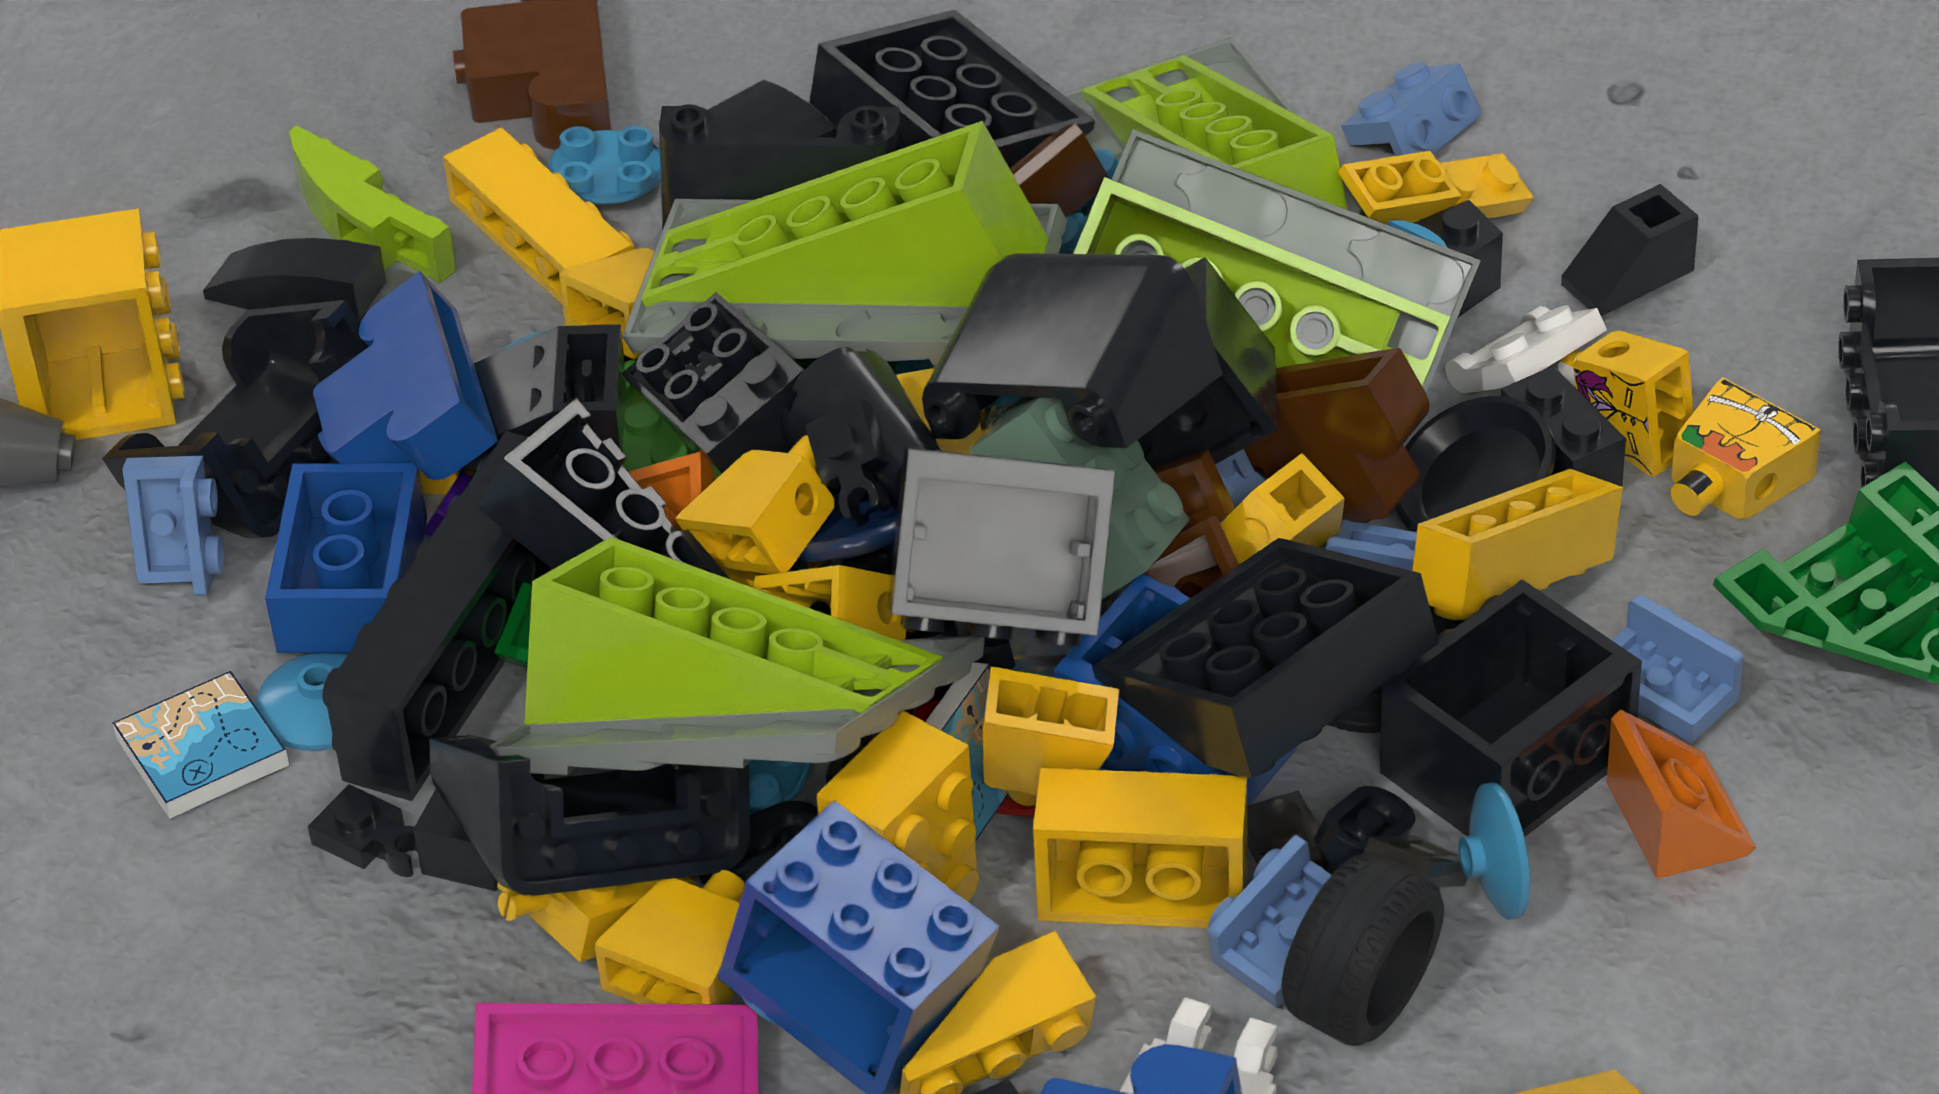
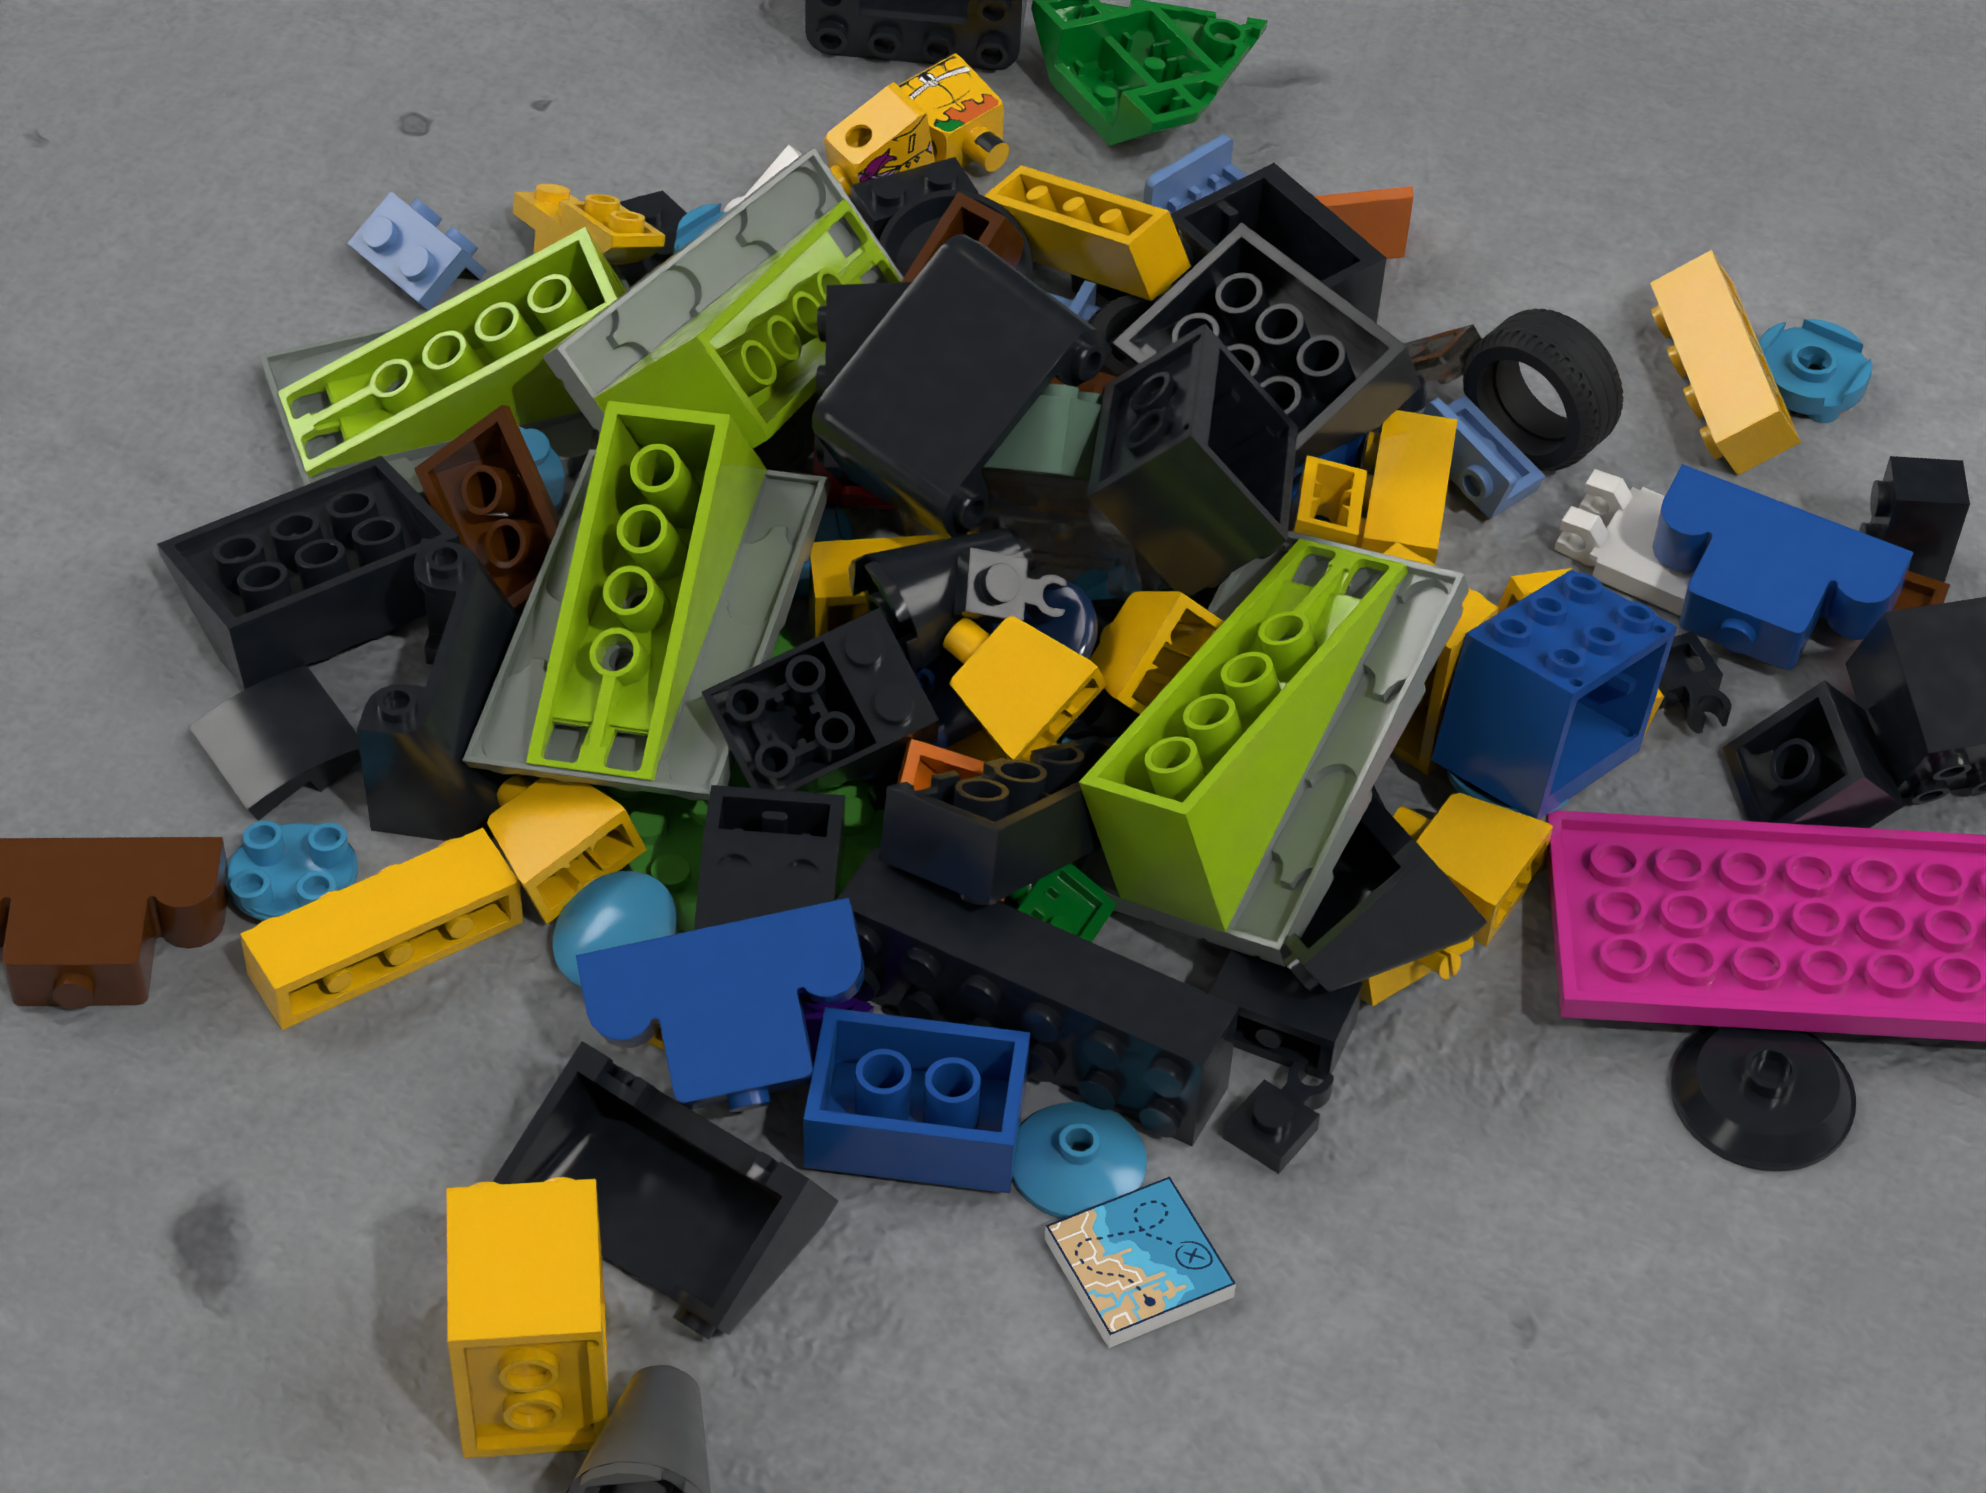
camera: 90 degrees left, 5 degrees up
(172, 522) = (848, 1239): medium blue bracket -> none
(300, 273) = (414, 1157): black slope -> none
(352, 206) = (289, 1107): lime slope -> none
(1497, 851) = (1423, 299): dark azure dish -> none
(1634, 251) = (682, 130): black slope -> none

